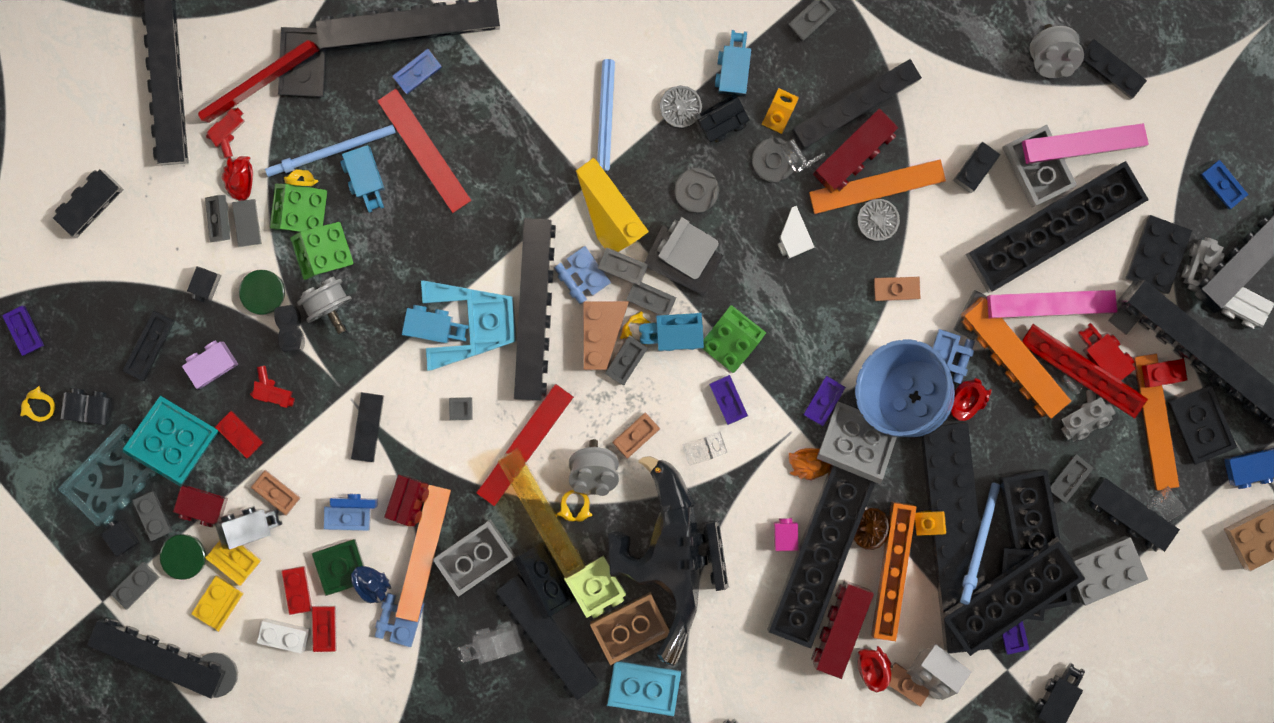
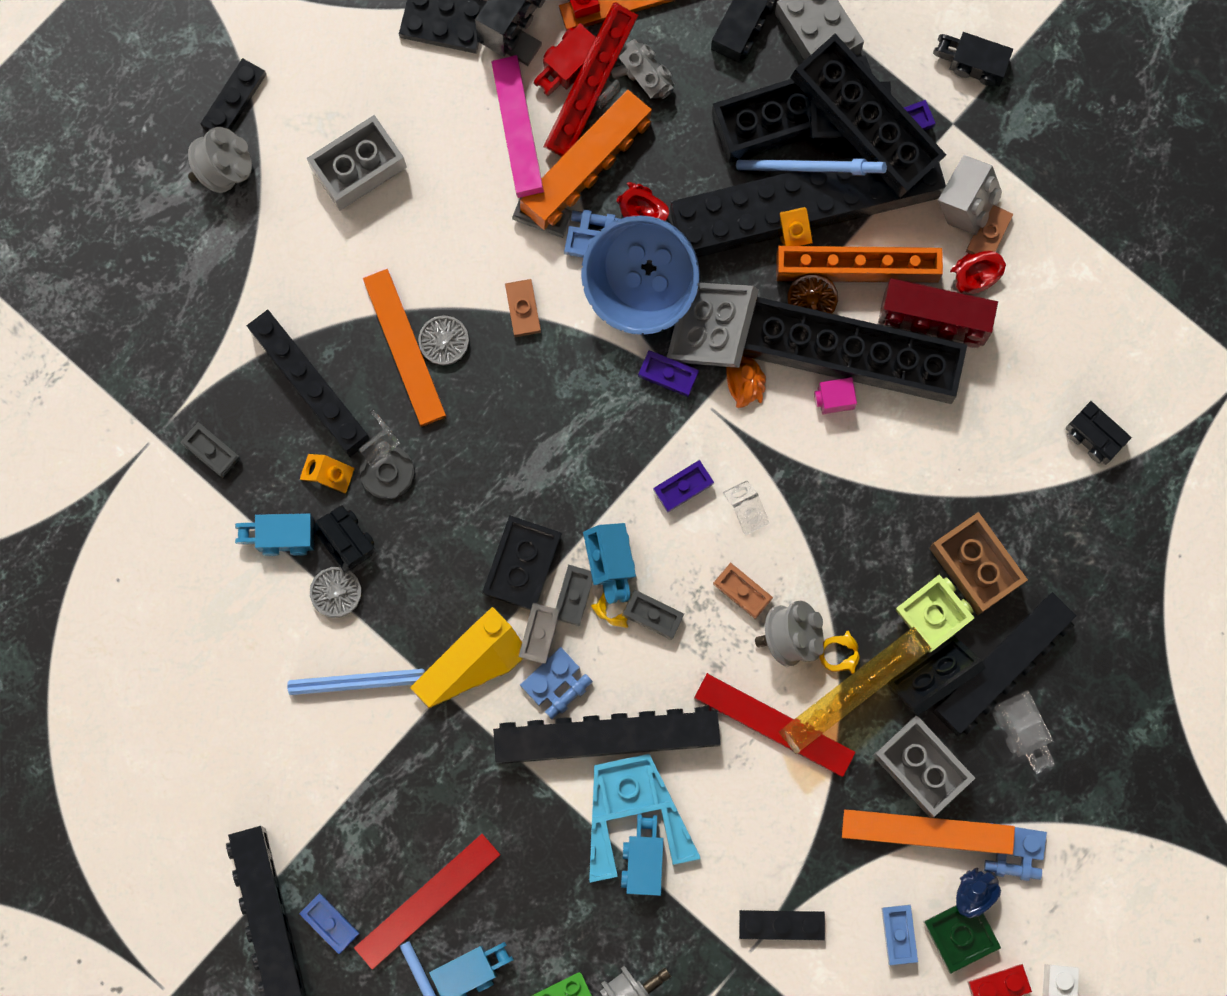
camera: 95 degrees left, 10 degrees down
(324, 628) = (1042, 944): red plate -> none
(353, 501) = (877, 928): blue plate -> none
(407, 500) = (866, 861): dark red brick -> none
(461, 408) = (741, 810): dark grey plate -> none
(601, 331) = (623, 649): nougat wedge -> none
(644, 688) = (1047, 539): medium azure tile -> none
(671, 555) = (882, 523): black animal -> none
(687, 248) = (507, 557): light grey bracket -> none
(696, 190) = (435, 559): dark grey tile -> none
(716, 555) = (873, 475): black plate -> none
(732, 339) = (610, 490): bright green bracket -> none
(794, 235) = (474, 434): white slope -> none
(855, 151) = (364, 375): dark red brick -> none
(976, 167) = (367, 234): black brick -> none
(1057, 227) = (426, 134): black brick -> none
(1070, 478) = (717, 80): dark grey plate -> none
(1084, 143) = (324, 114): tile -> none

